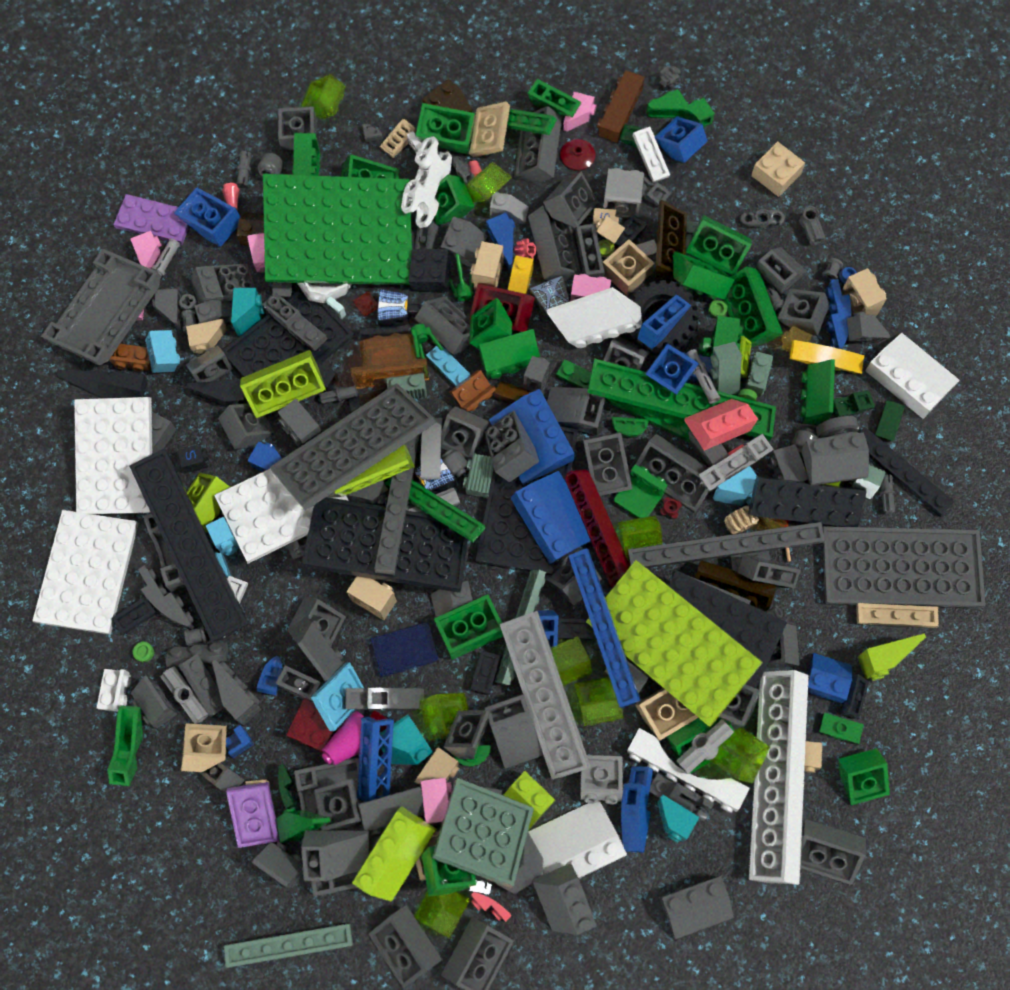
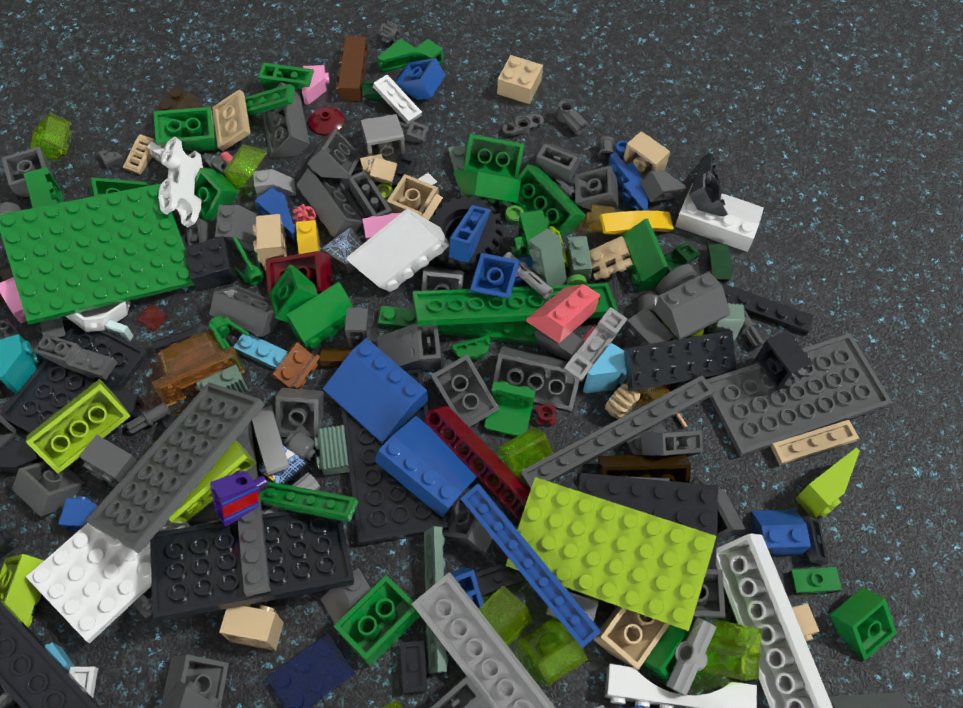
camera: 25 degrees left, 10 degrees down
(223, 536) = (49, 622): medium azure brick -> none
(391, 490) = (236, 495): none -> dark purple torso
(395, 308) = (184, 311): torso -> none
(510, 447) = (356, 408): dark grey slope -> none
(640, 281) = (431, 206): none -> tan plate
(670, 238) = (444, 161): dark brown slope -> none
(787, 378) = (609, 253): none -> tan plate
(899, 535) = (783, 360): none -> black brick
(909, 344) = (707, 189): none -> black wedge

